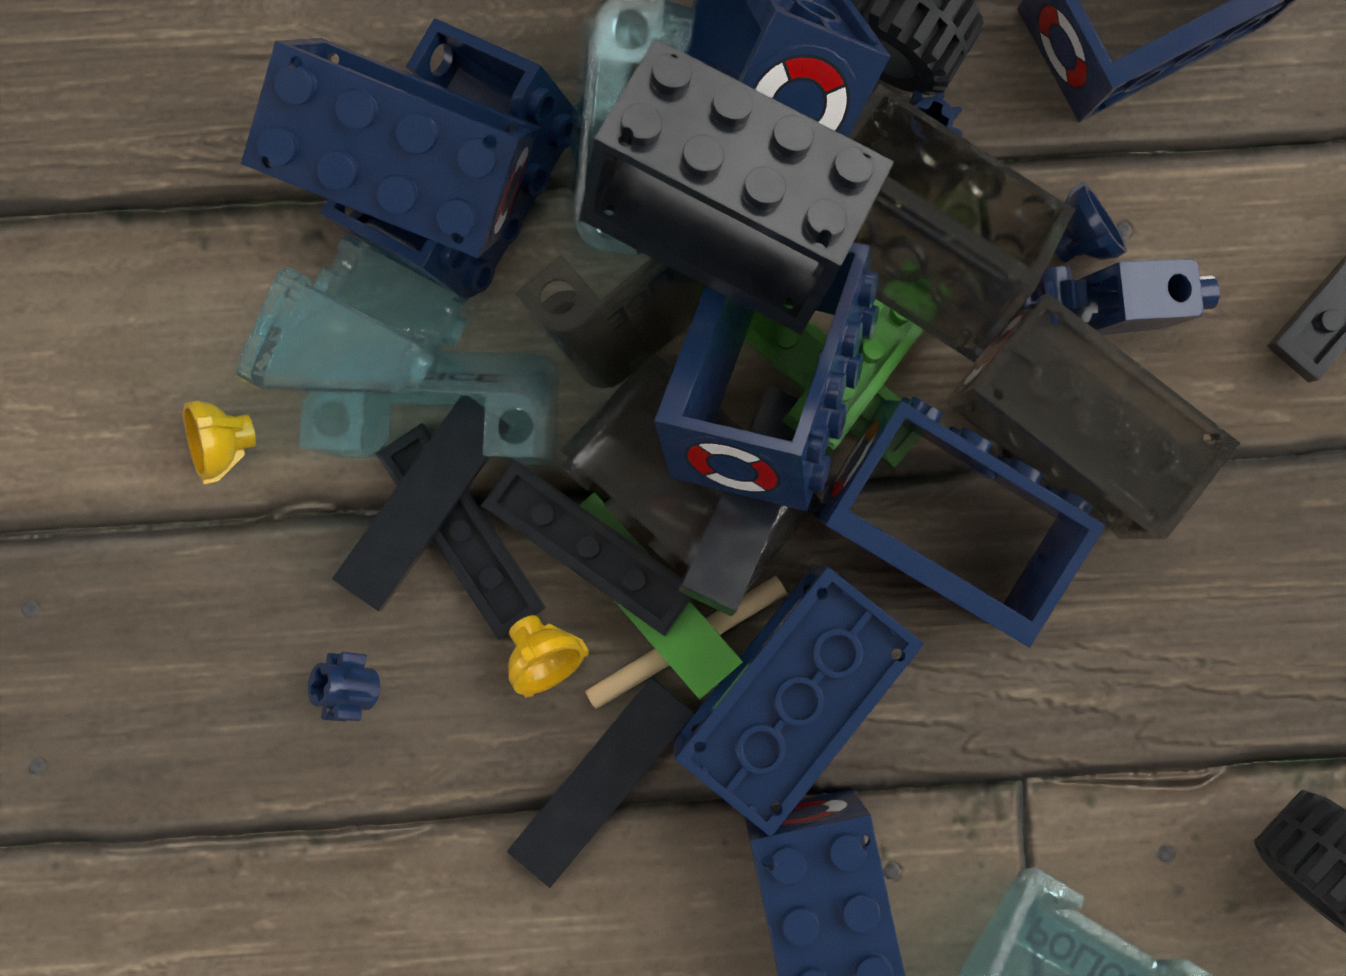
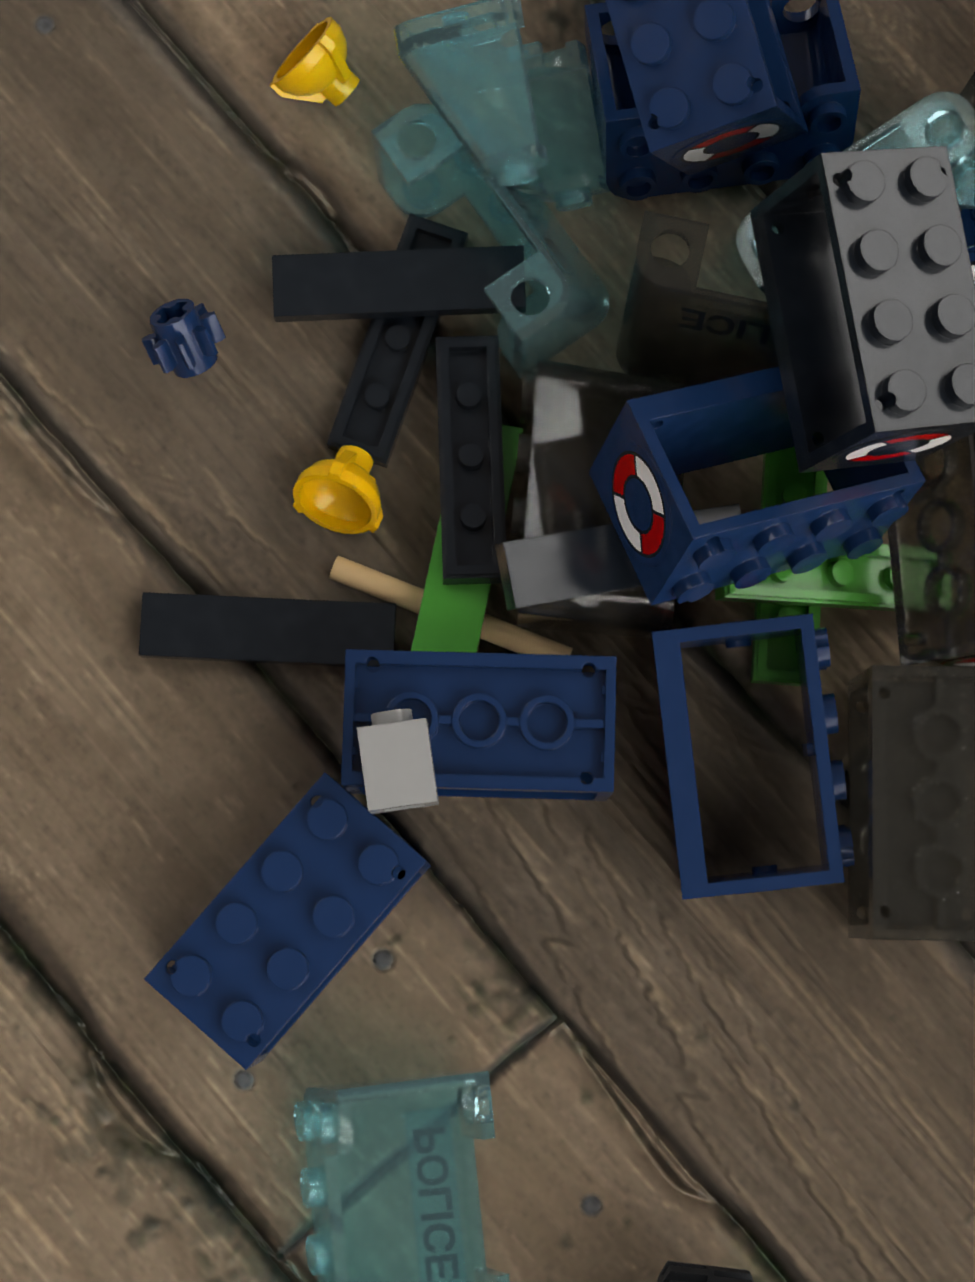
camera: 60 degrees right, 5 degrees down
(792, 791) = (397, 762): none -> light grey brick

